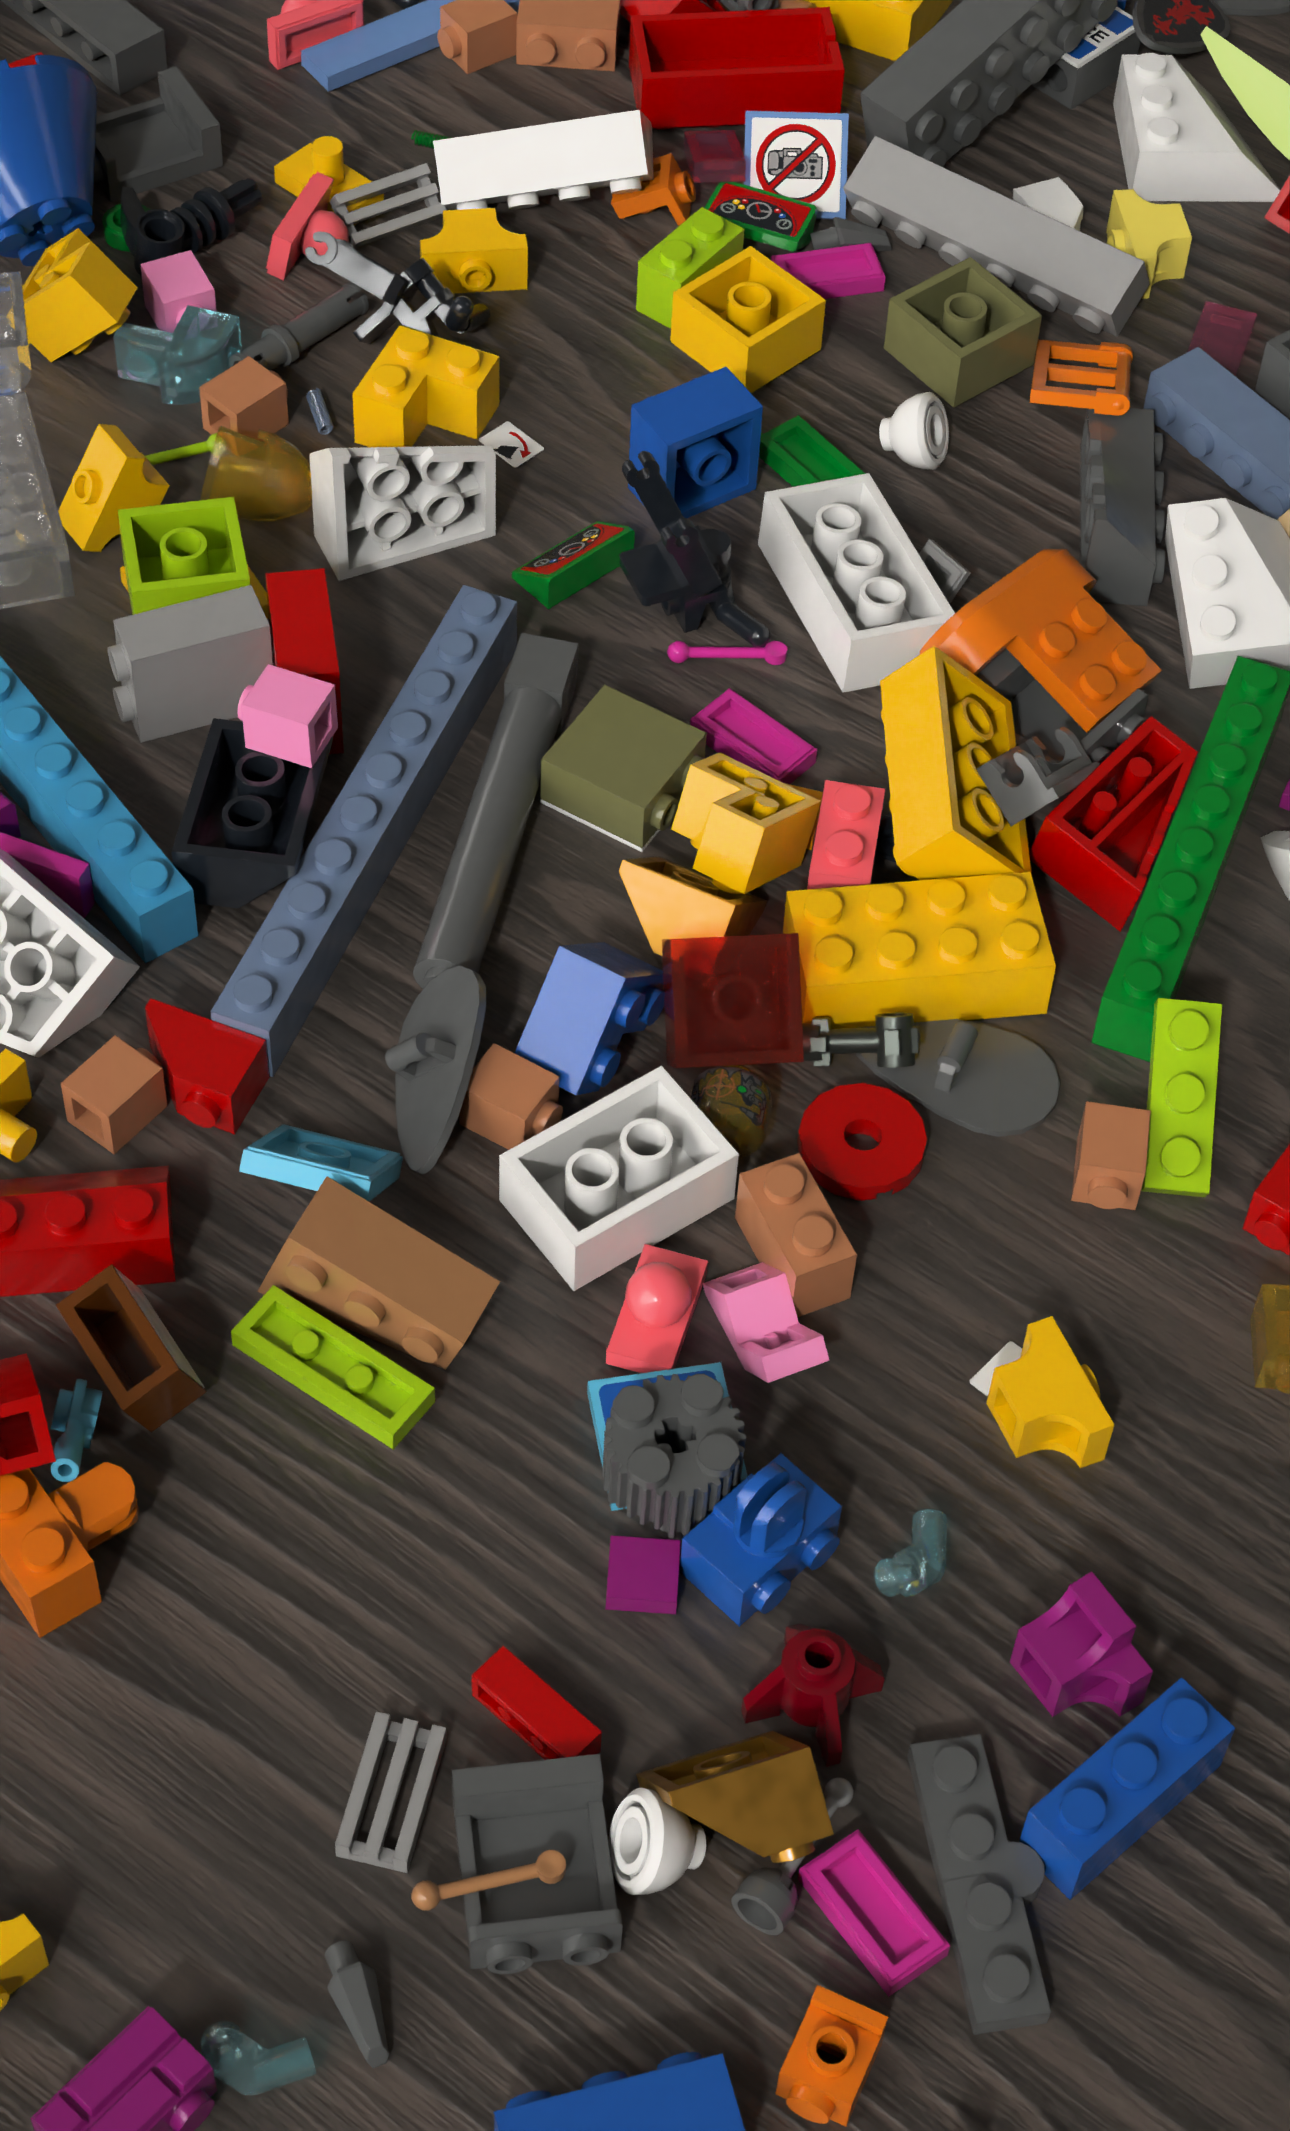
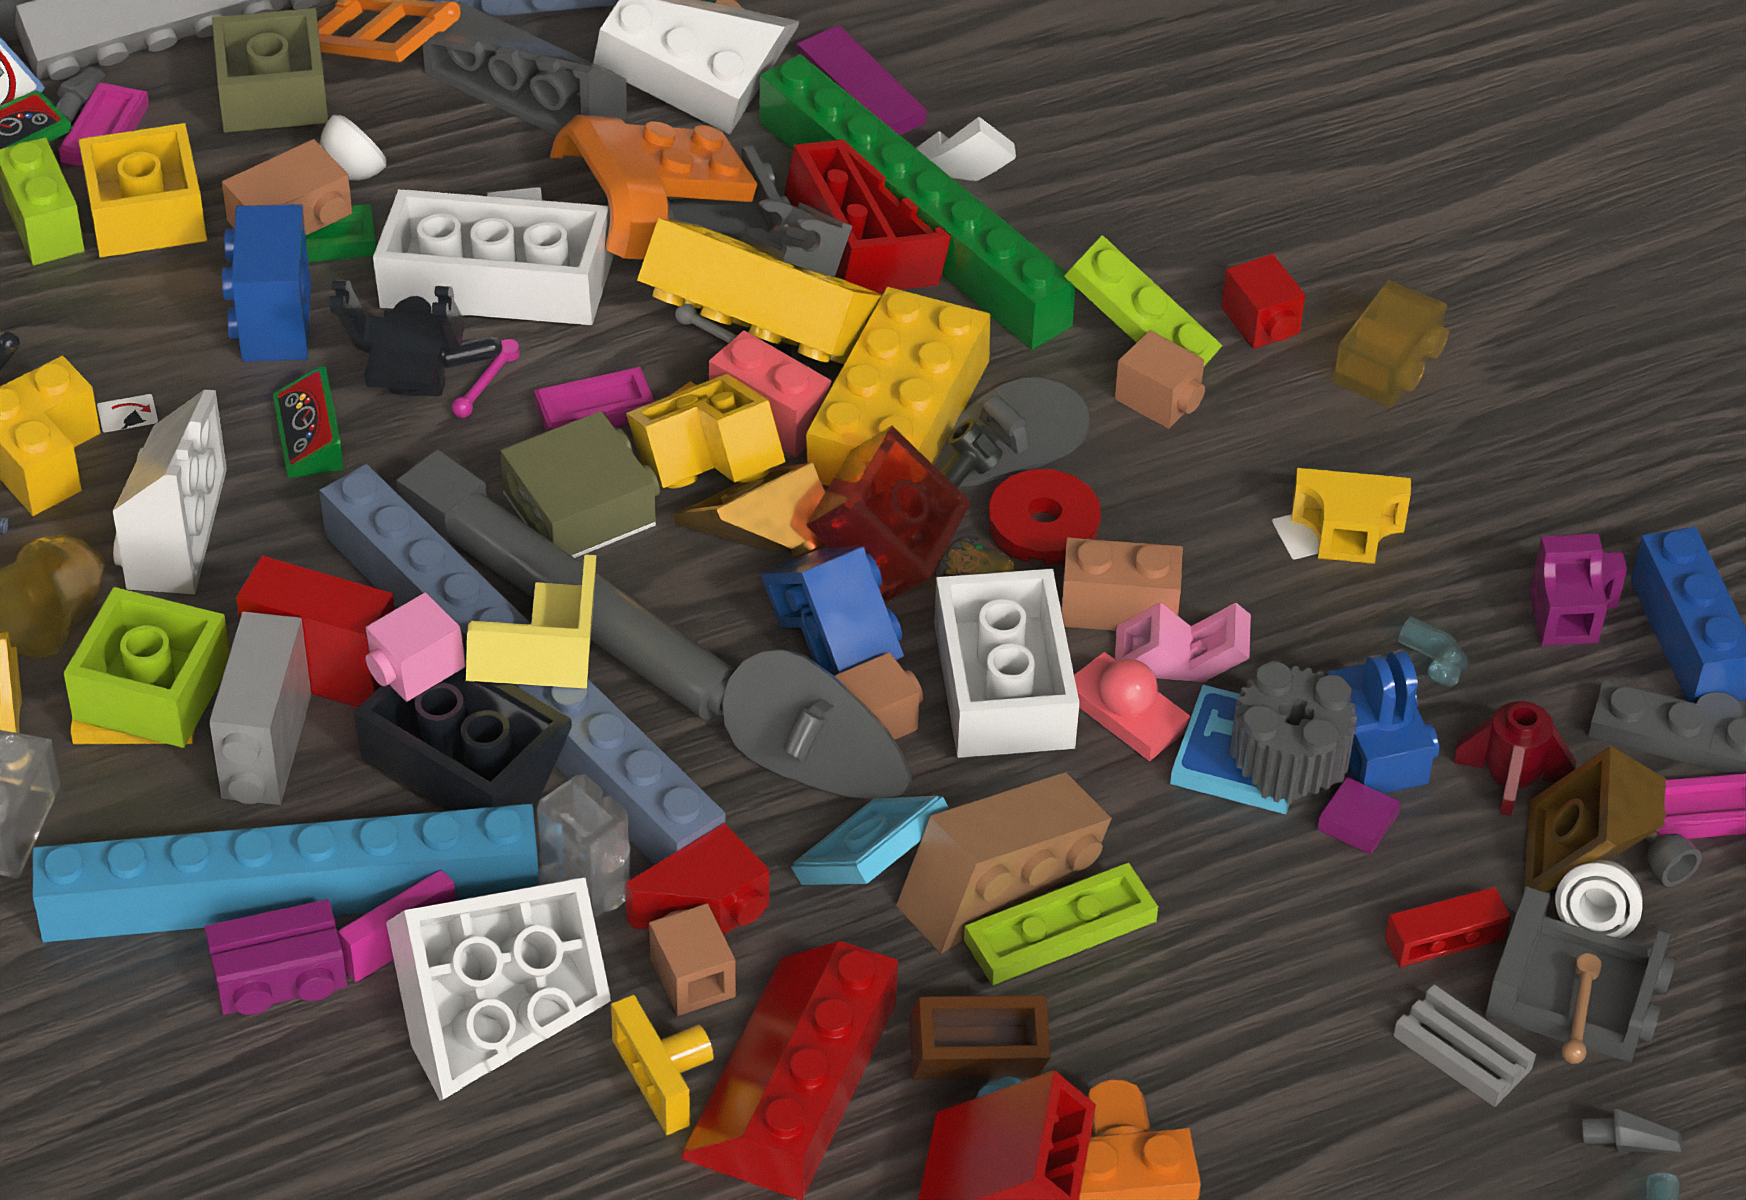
camera: 60 degrees left, 5 degrees down
(174, 946) = (585, 839): none -> clear brick
(365, 815) = (547, 651): none -> light yellow panel
(813, 411) = (295, 177): none -> nougat brick

